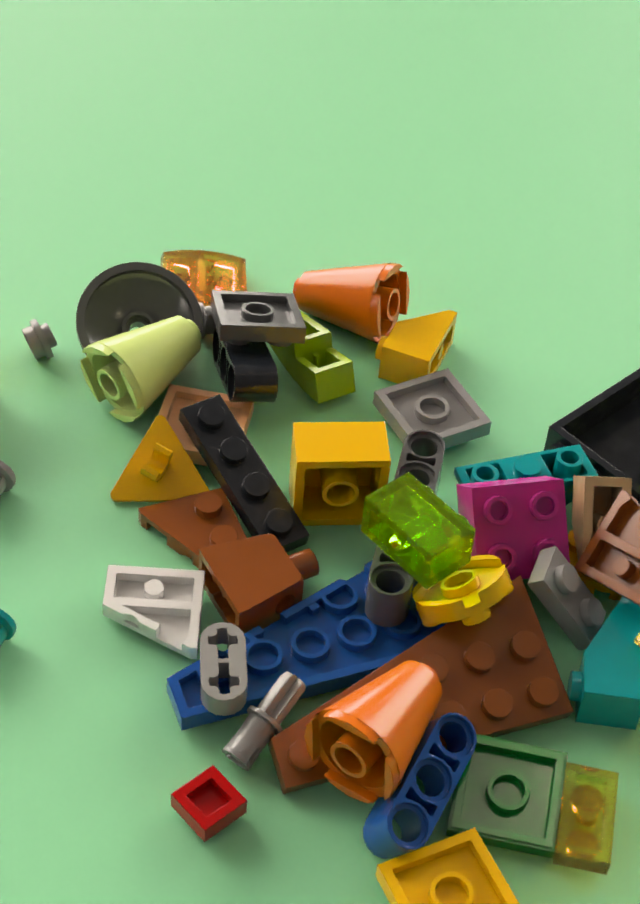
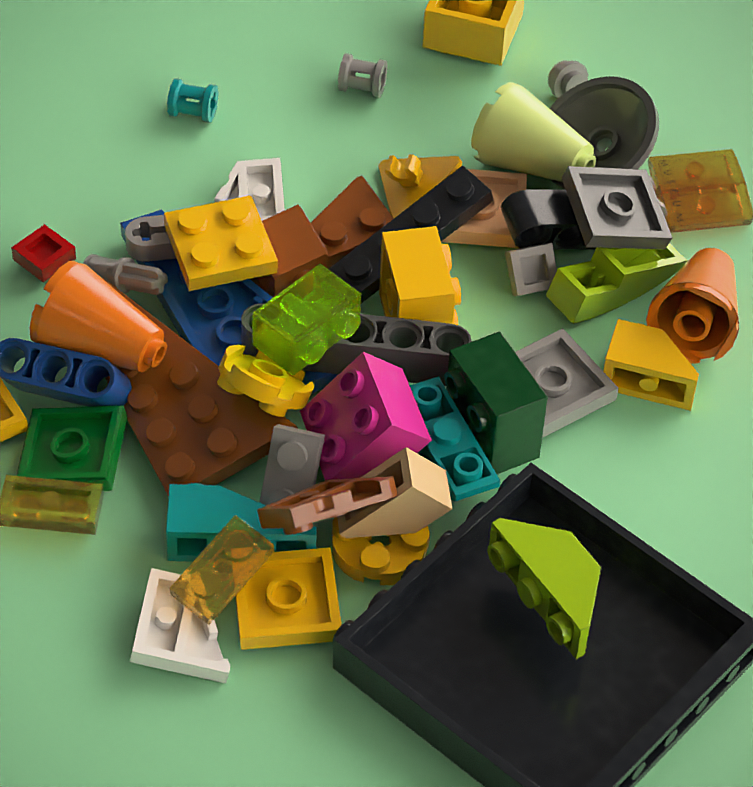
camera: 85 degrees right, 5 degrees up
(260, 612) = (220, 243): none -> yellow plate
(293, 402) = (531, 268): none -> light grey plate
(483, 428) = (497, 400): none -> dark green brick

